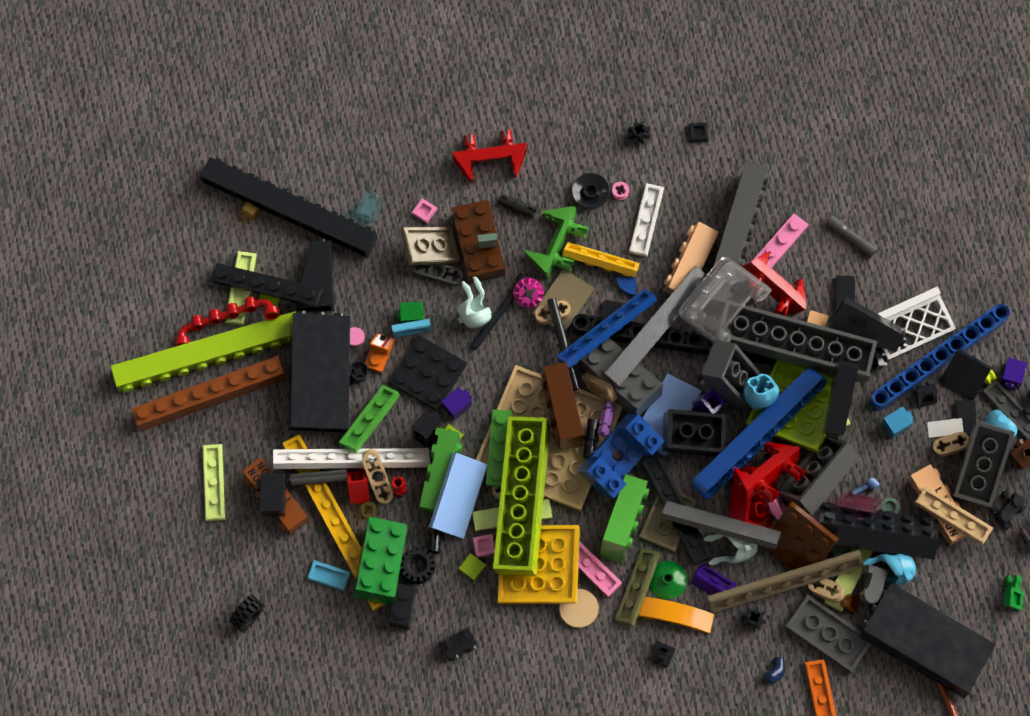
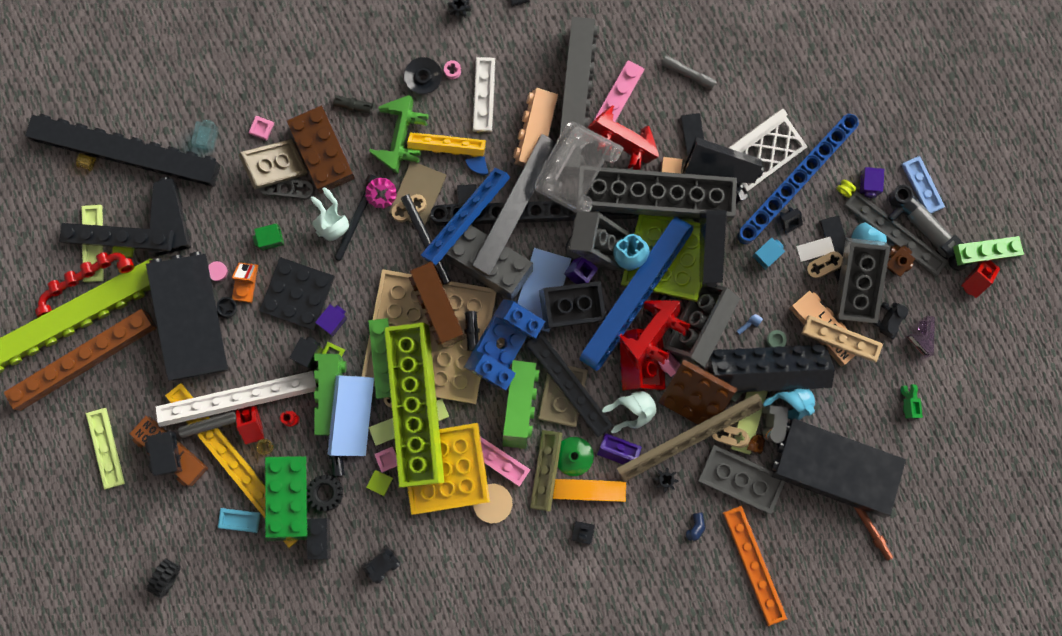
camera: 15 degrees left, 10 degrees up
(367, 465) = (265, 403): tan beam -> none
(369, 419) = (247, 354): bright green plate -> none
(411, 328) = (271, 251): medium azure tile -> none
(471, 154) = (332, 49): red hose -> none
(487, 240) = (328, 149): sand green tile -> none
(599, 387) = (470, 277): tan tile -> none
(606, 419) = (483, 308): medium lavender axle -> none
(721, 525) = (617, 395): dark grey tile -> none
(860, 502) = (748, 343): clear pink tile -> none
(965, 374) = (826, 192): black tile -> none

